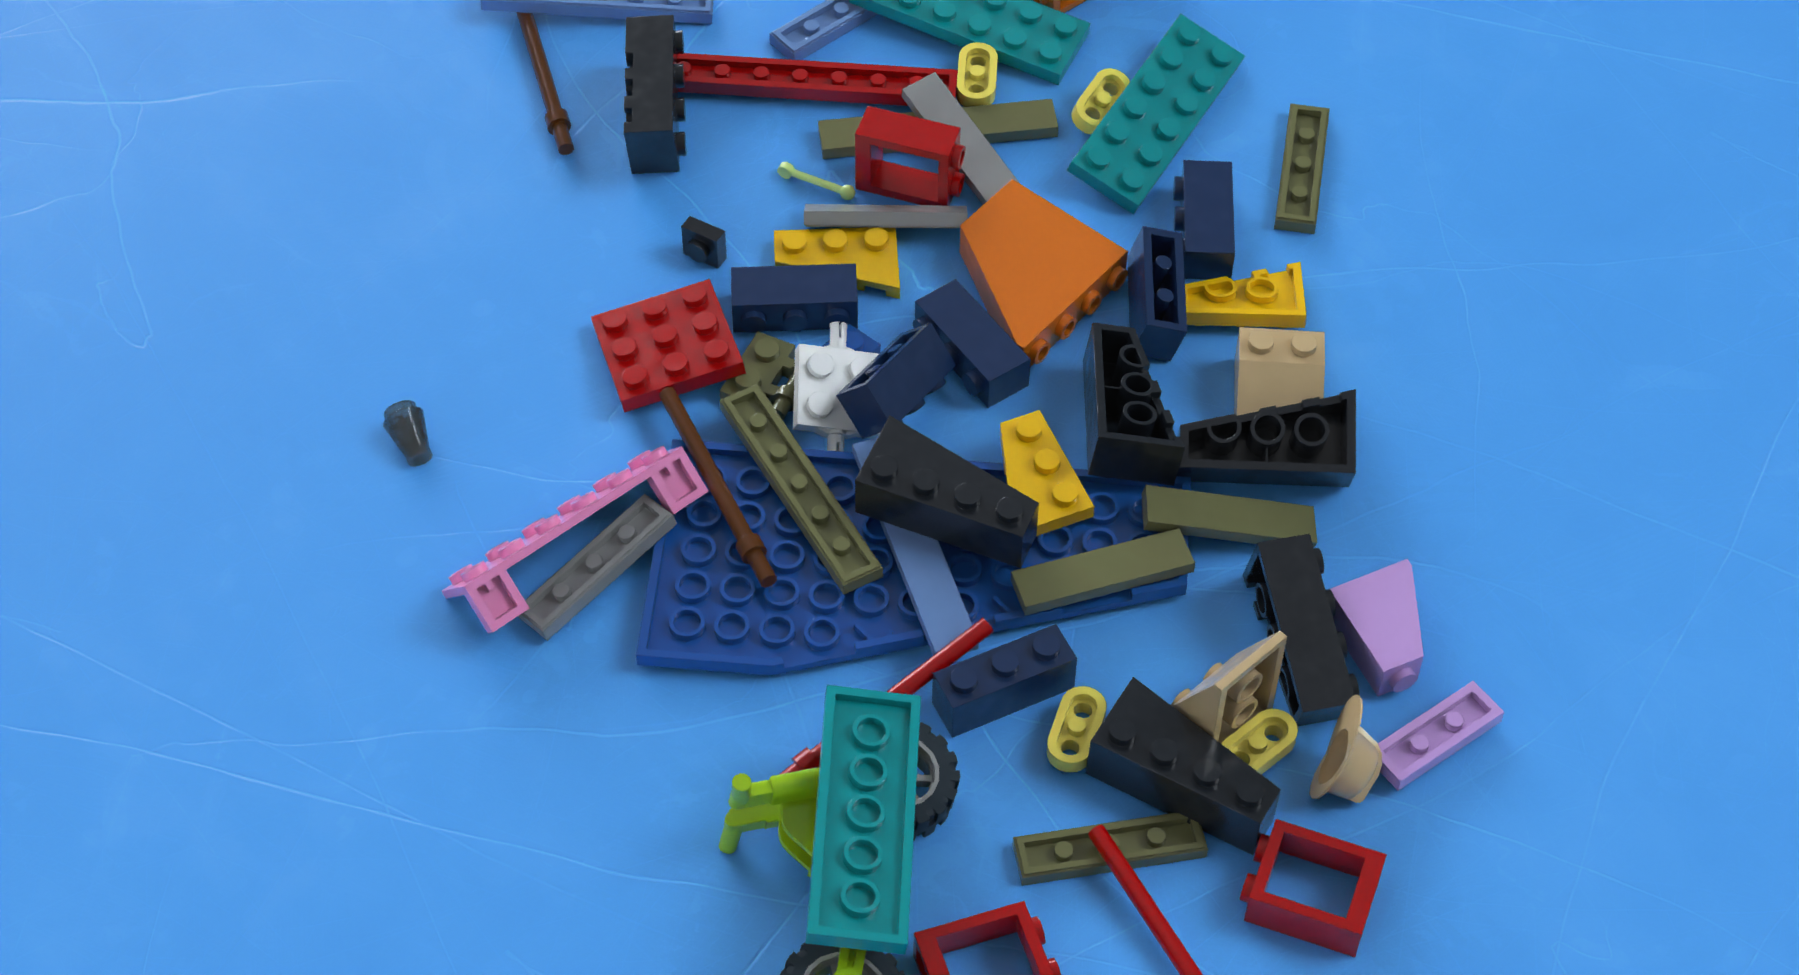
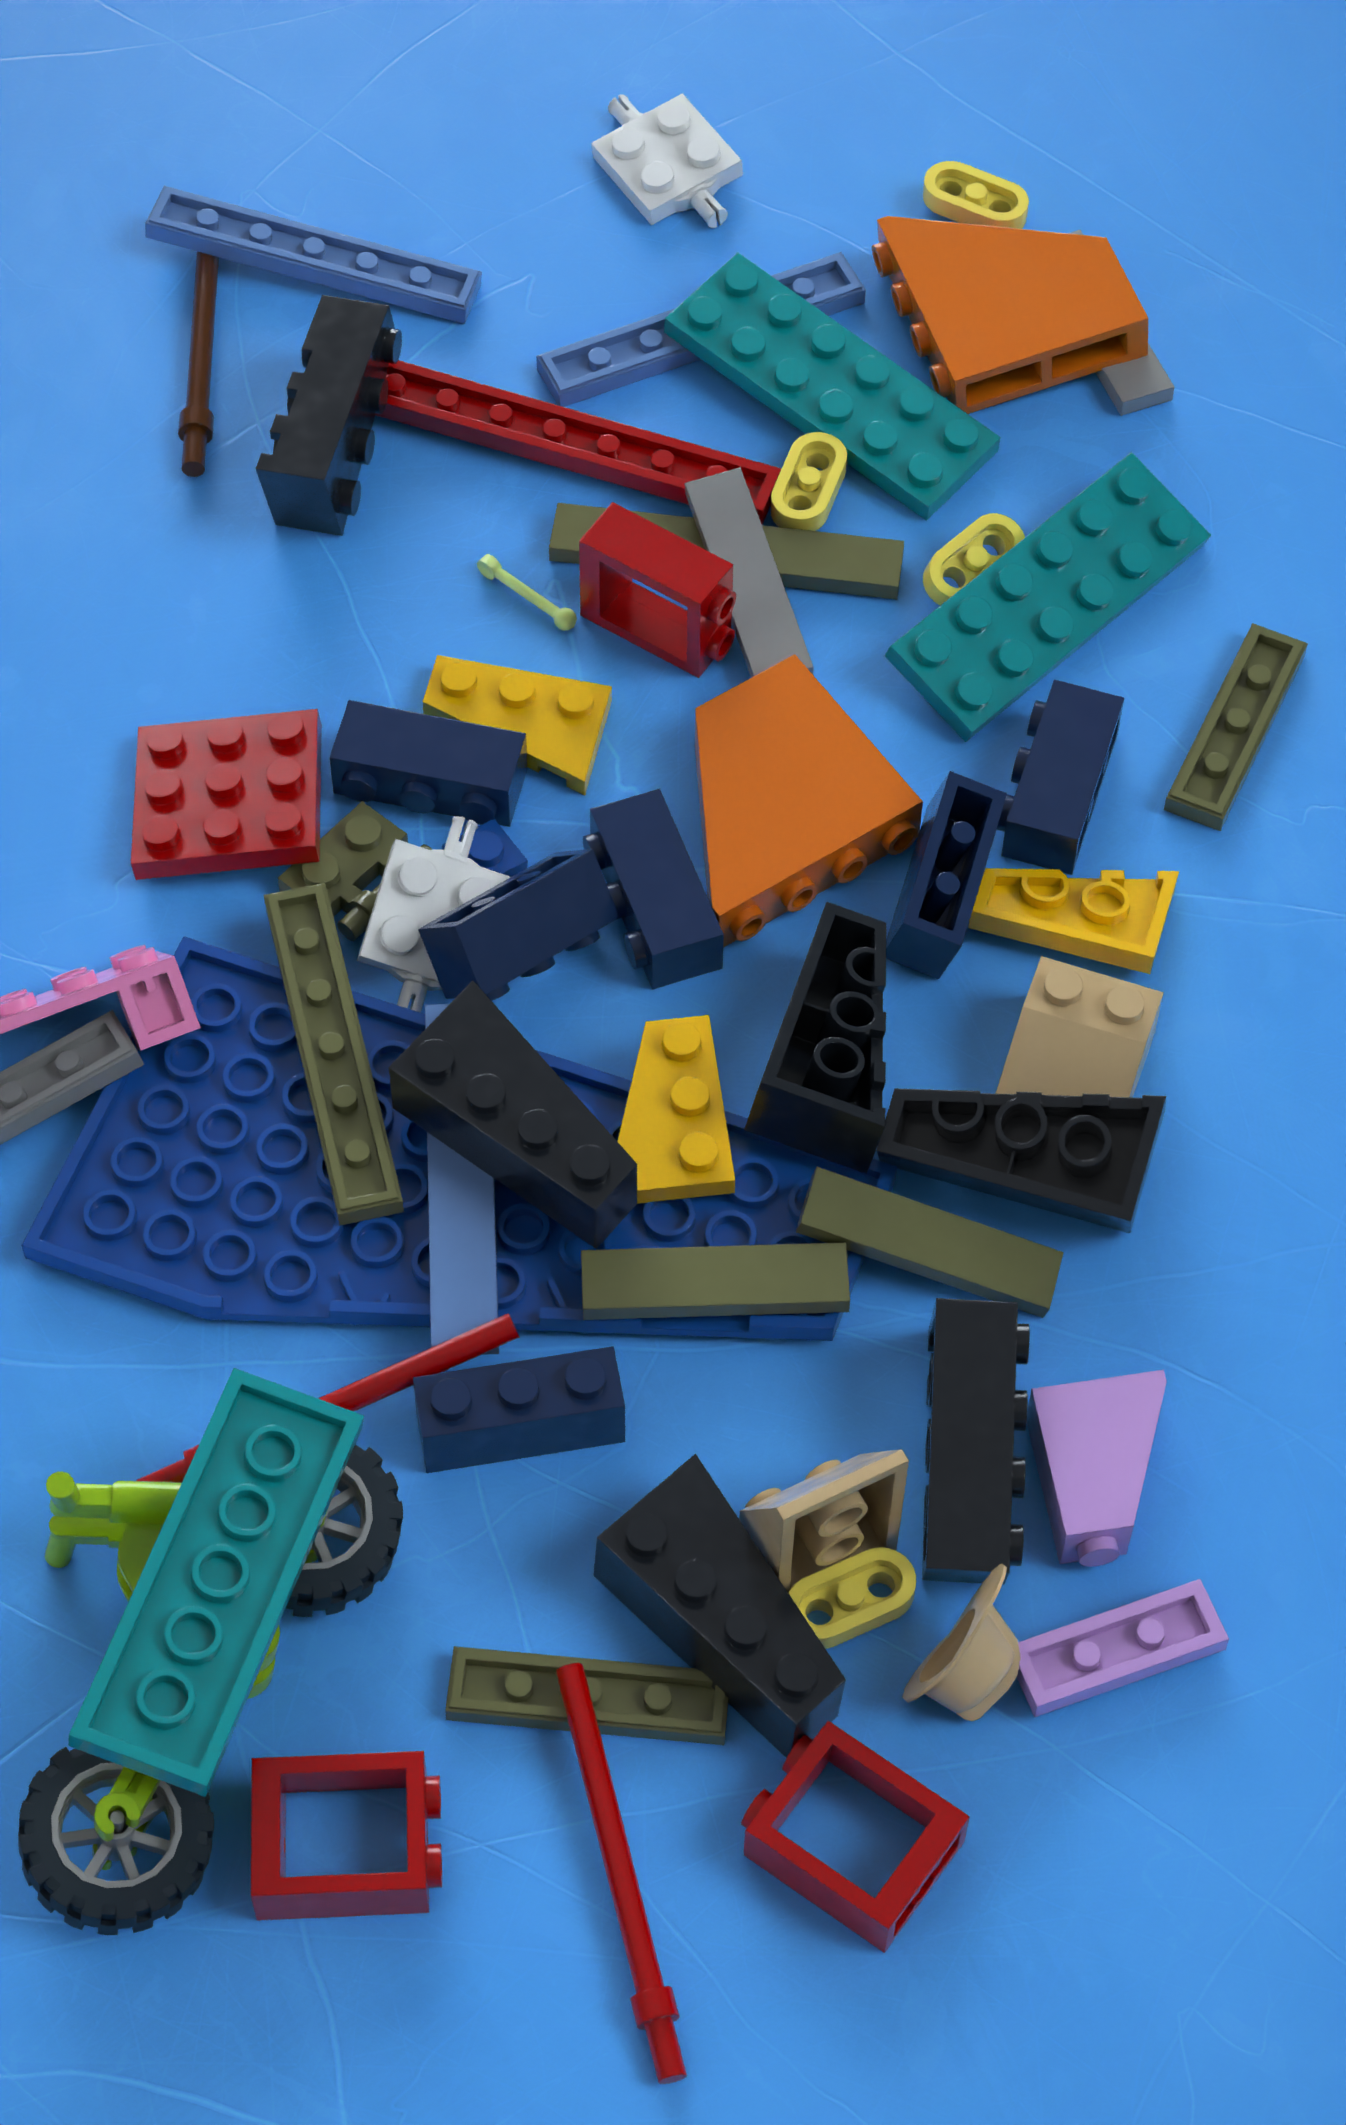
camera: 15 degrees right, 5 degrees up
(703, 242) = (331, 652): black plate -> none
(748, 543) = (229, 1121): reddish brown bar -> none
(884, 216) = (600, 667): light grey tile -> none
(1075, 732) = (592, 1507): light yellow plate -> none

